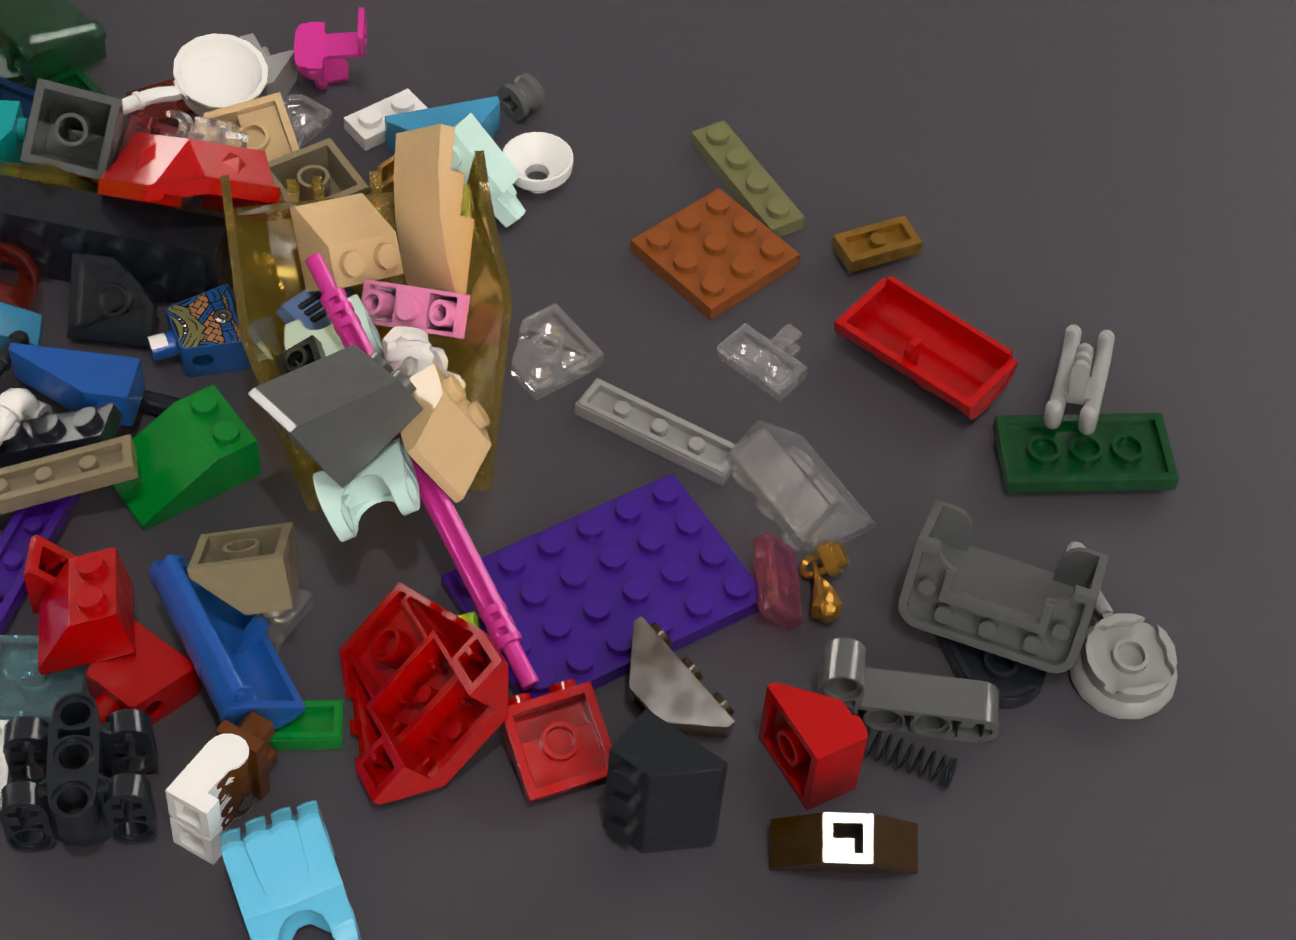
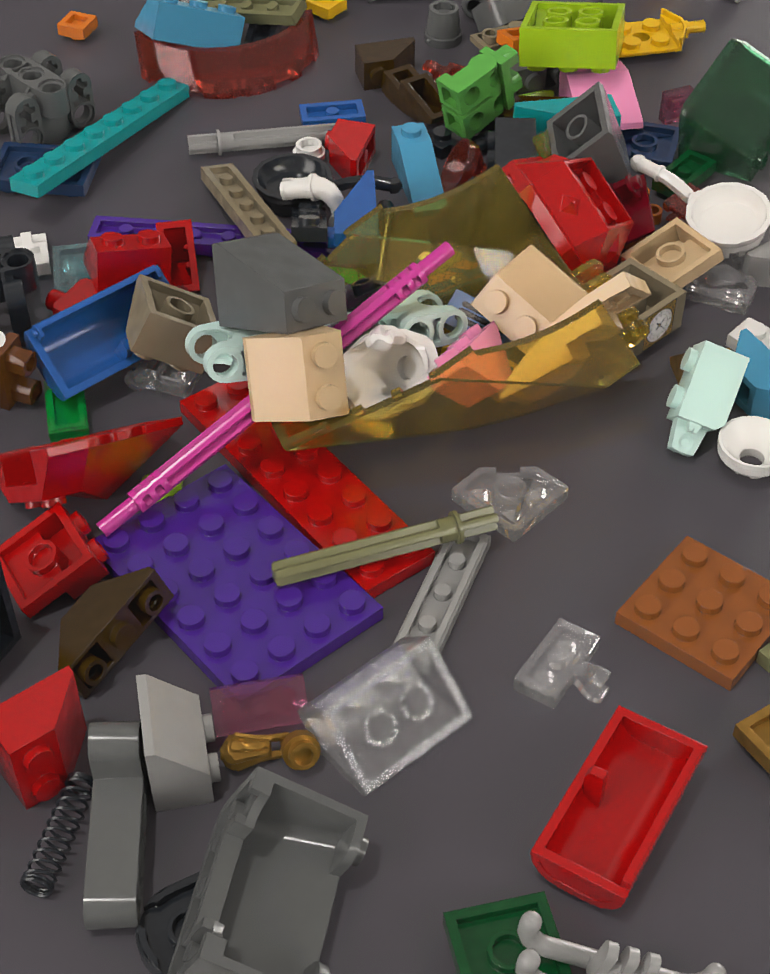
camera: 85 degrees right, 5 degrees down
(207, 130) = (629, 208): clear plate -> none
(525, 499) = (308, 489): none -> red plate
(601, 394) = (384, 545): none -> olive axle
(803, 635) = (176, 745): none -> light grey slope

